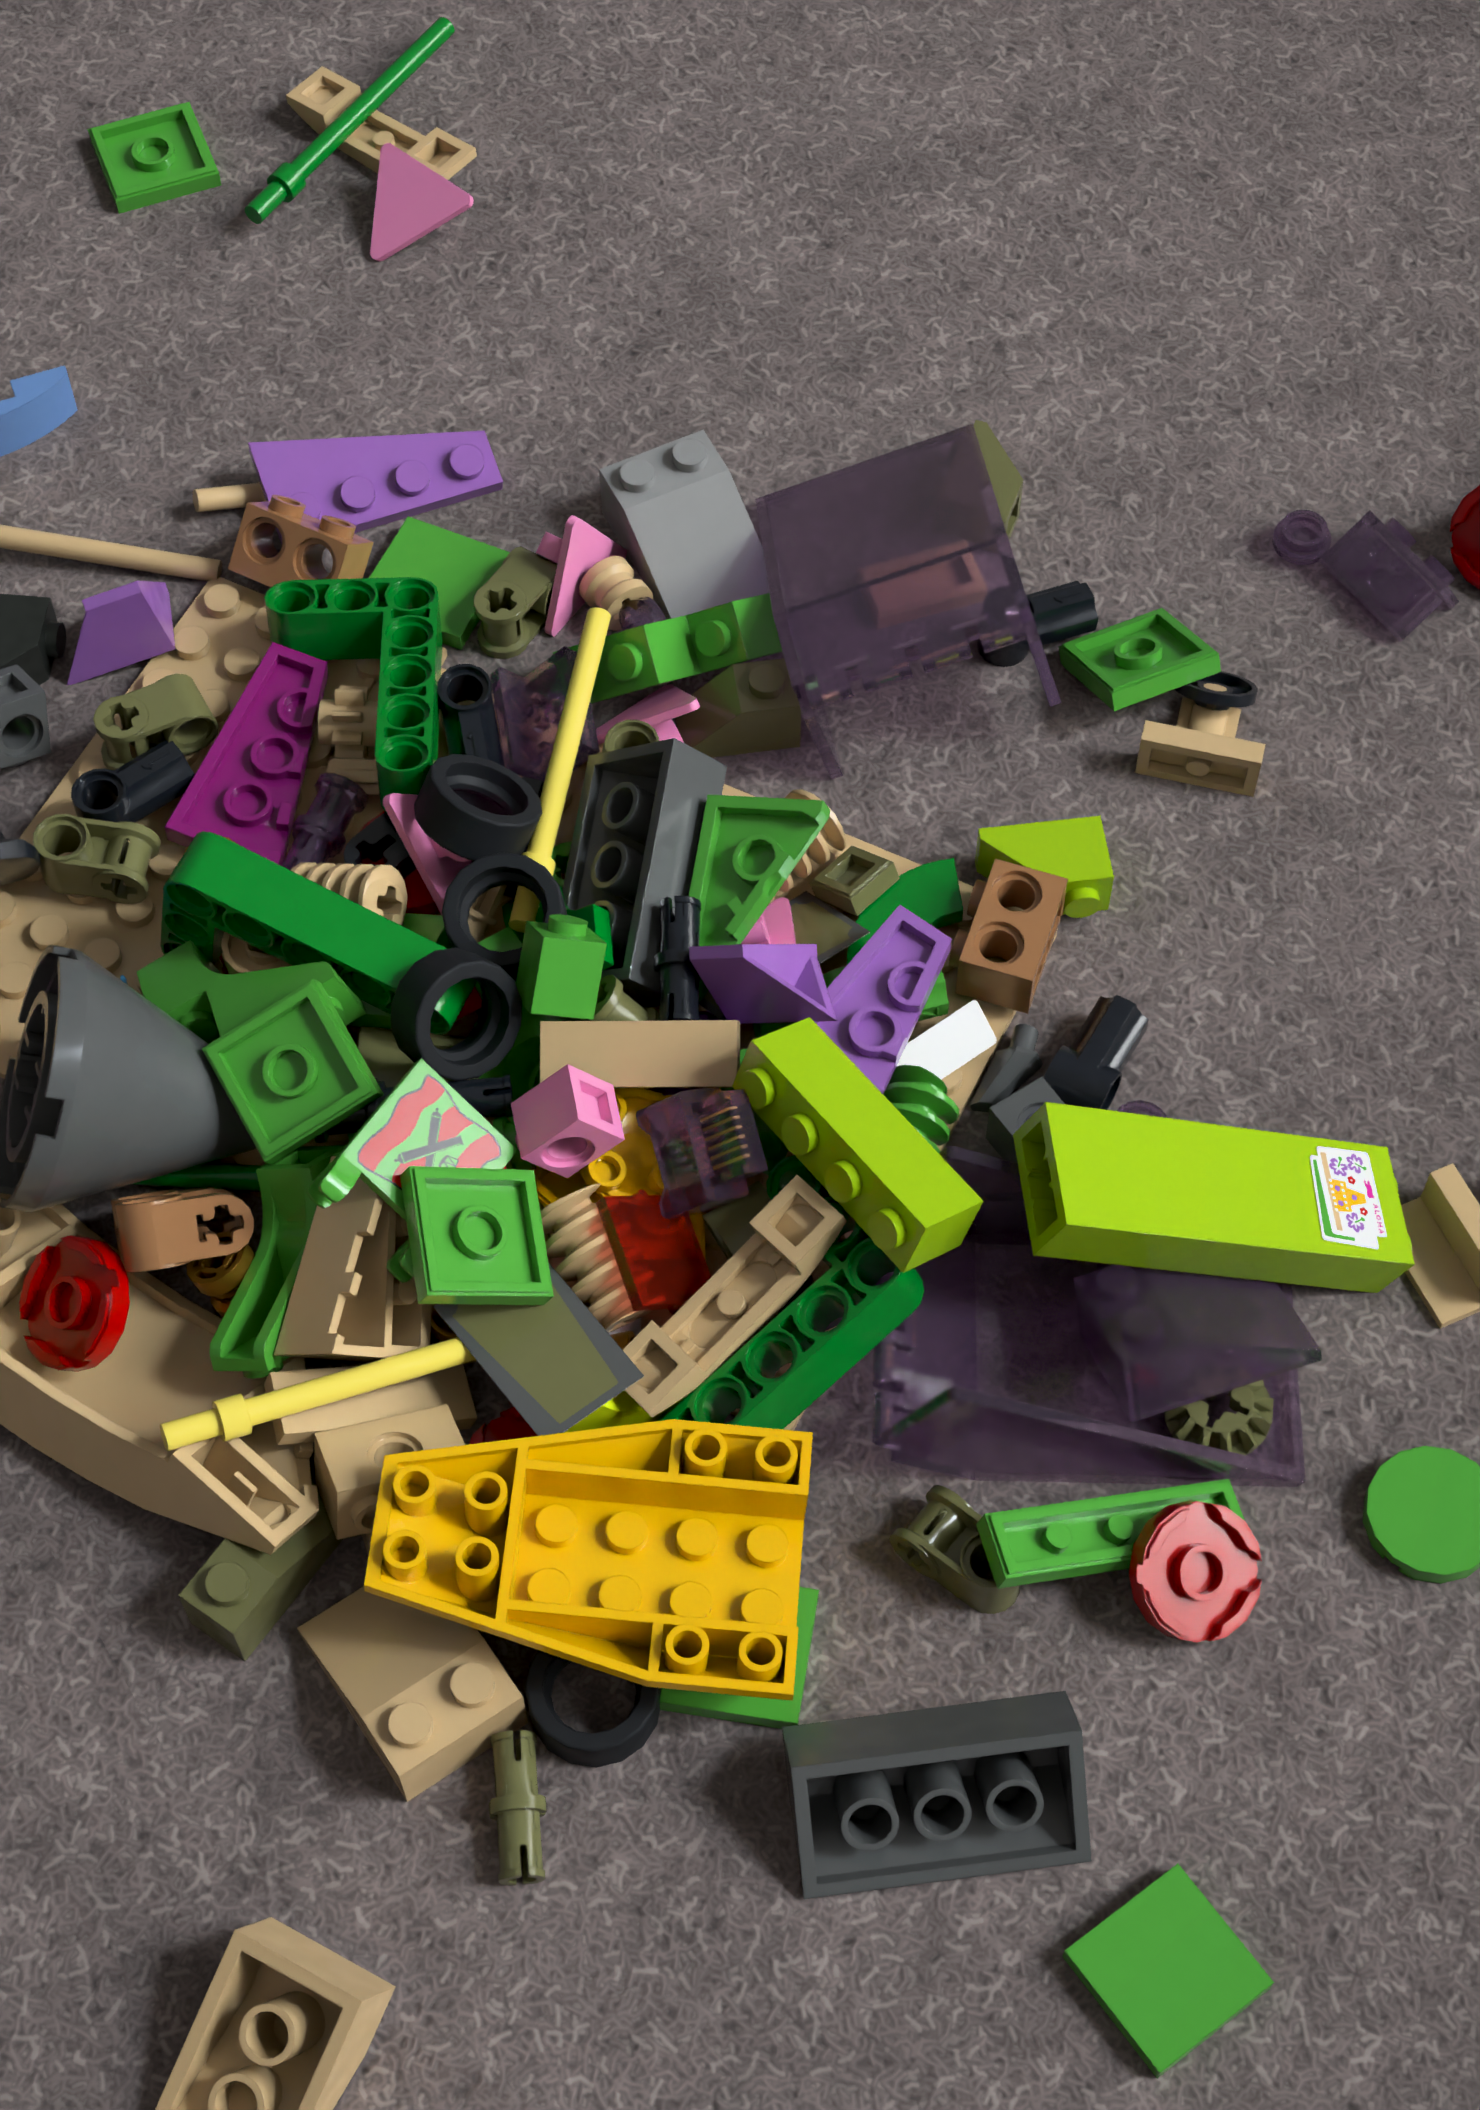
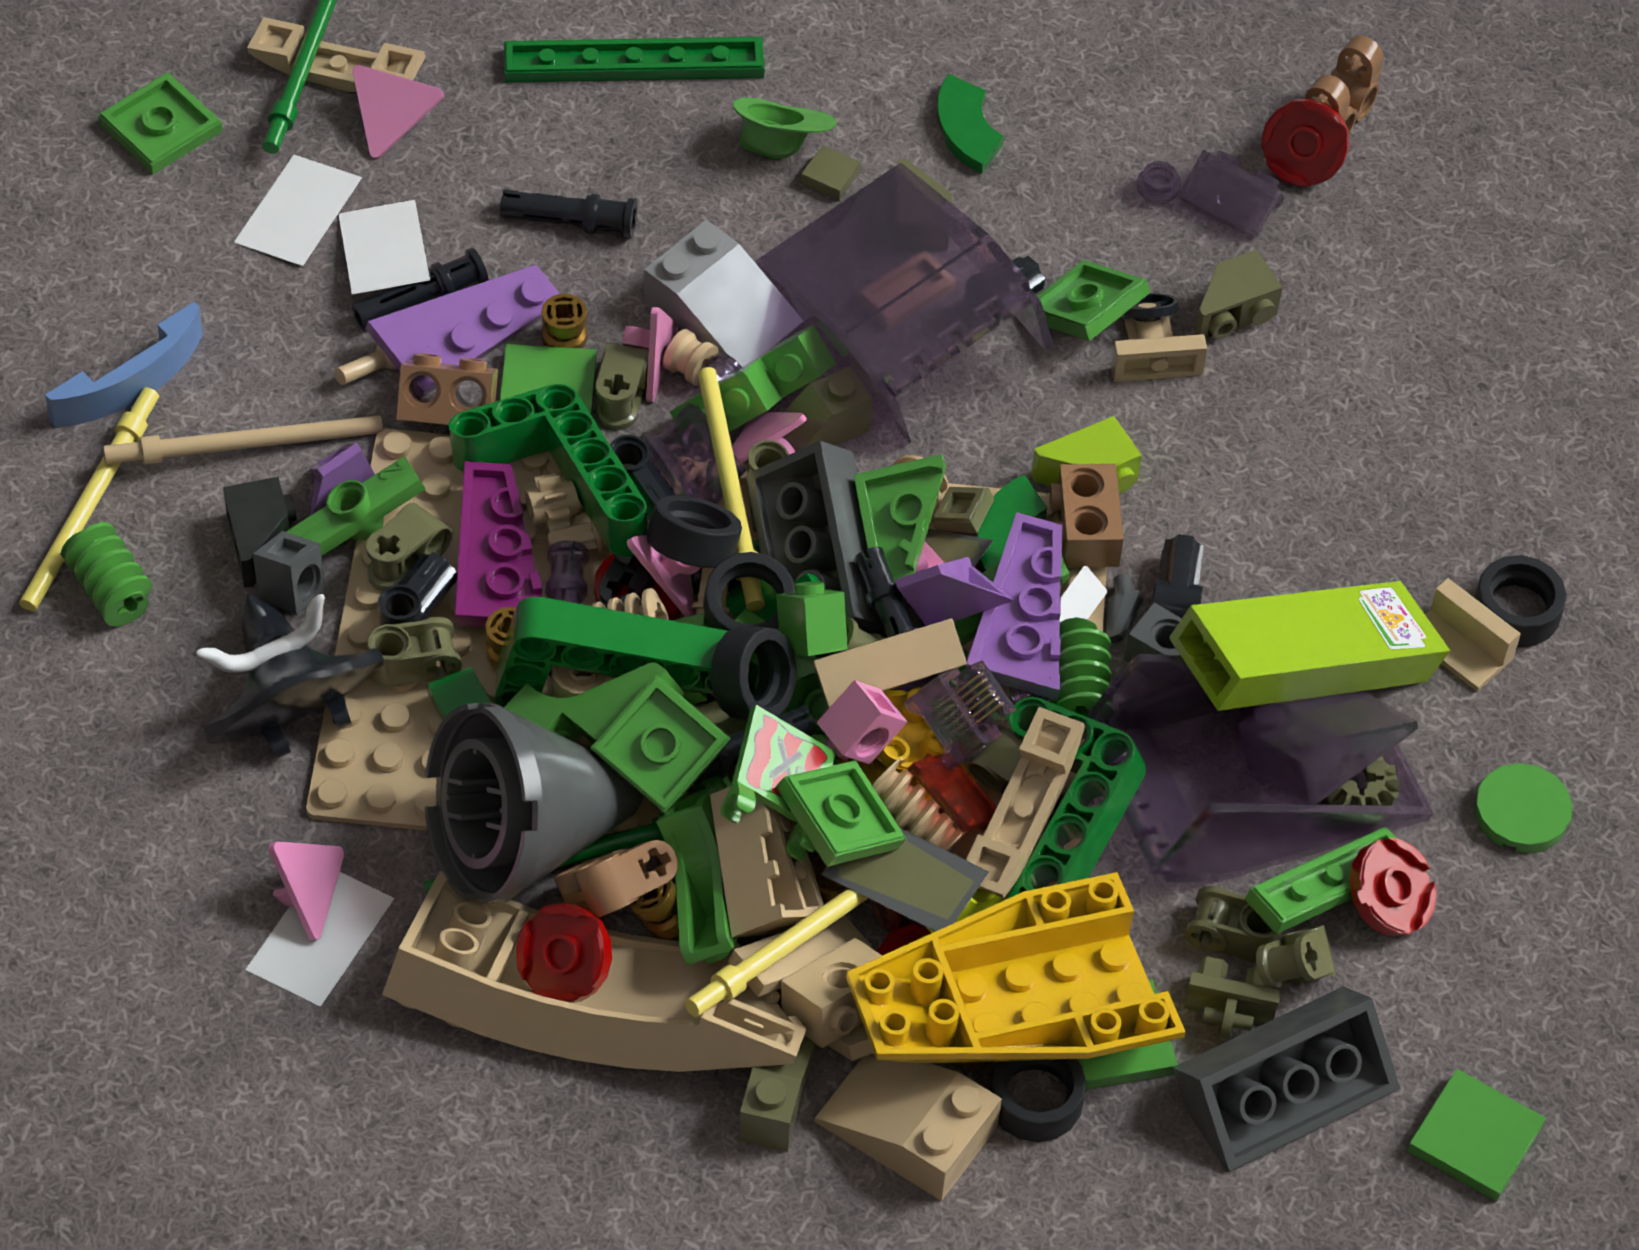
camera: 25 degrees left, 5 degrees down
(122, 662) = (359, 508): none -> bright green piece
(127, 932) = (456, 690): none -> green tile
(257, 296) = (298, 210): none -> white sticker
(325, 364) = (383, 247): none -> white sticker
(368, 419) = (444, 279): none -> black pin
(485, 509) = (564, 322): none -> pearl gold wheel
(517, 1808) = (1020, 1176): olive pin -> none
(582, 387) = (589, 213): none -> black pin
(729, 223) = (633, 59): none -> green tile
(852, 345) = (777, 129): none -> bright green piece
(857, 1144) = (1071, 674): lime brick -> none
(898, 417) = (831, 172): none -> olive tile
(904, 1662) = (1230, 1001): none -> olive hips
(1017, 1629) = (1295, 958): none -> olive piece
(1089, 402) = (964, 125): none -> green tile
(1335, 708) = (1238, 295): none -> olive slope

